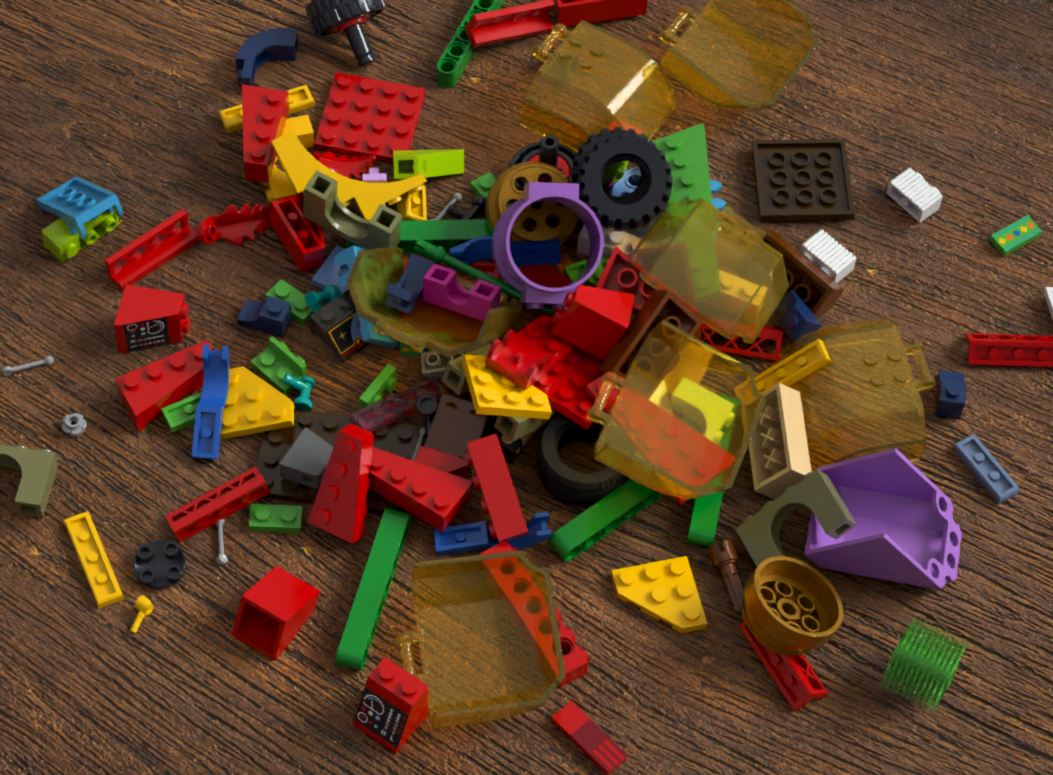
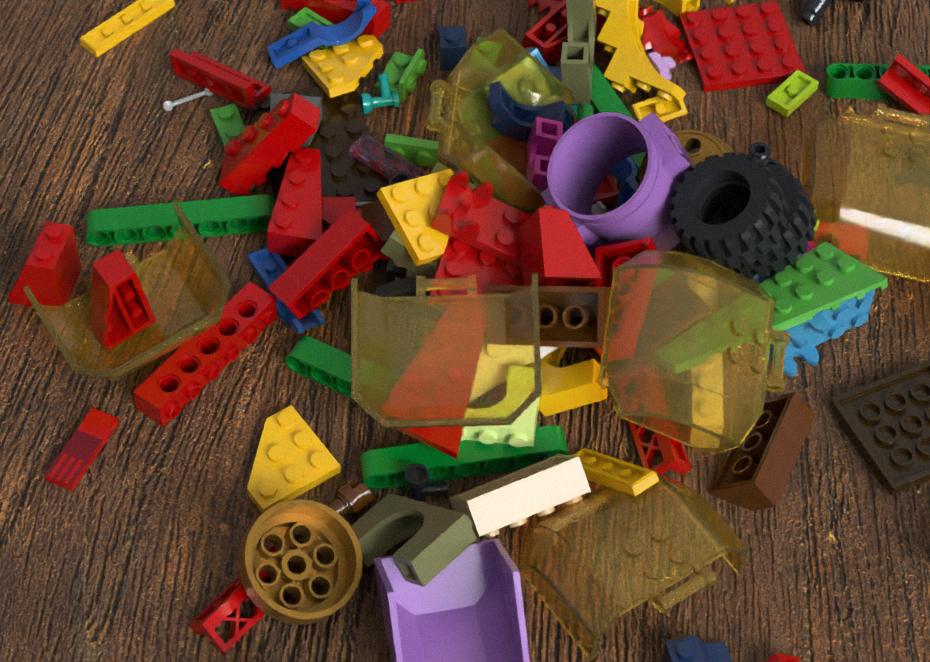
camera: 70 degrees right, 5 degrees down
(145, 608) = (89, 71): yellow hand -> none
(159, 564) = (139, 64): black dish -> none
(274, 611) = (122, 154): red slope -> none
(429, 162) = (707, 98): lime slope -> none
(444, 107) = (792, 93): none -> lime plate
(476, 649) = (117, 301): none -> red wedge
(734, 502) = (417, 478): none -> black piece
(796, 317) = (703, 470): dark blue arch -> none
(828, 255) = (814, 480): white brick -> none

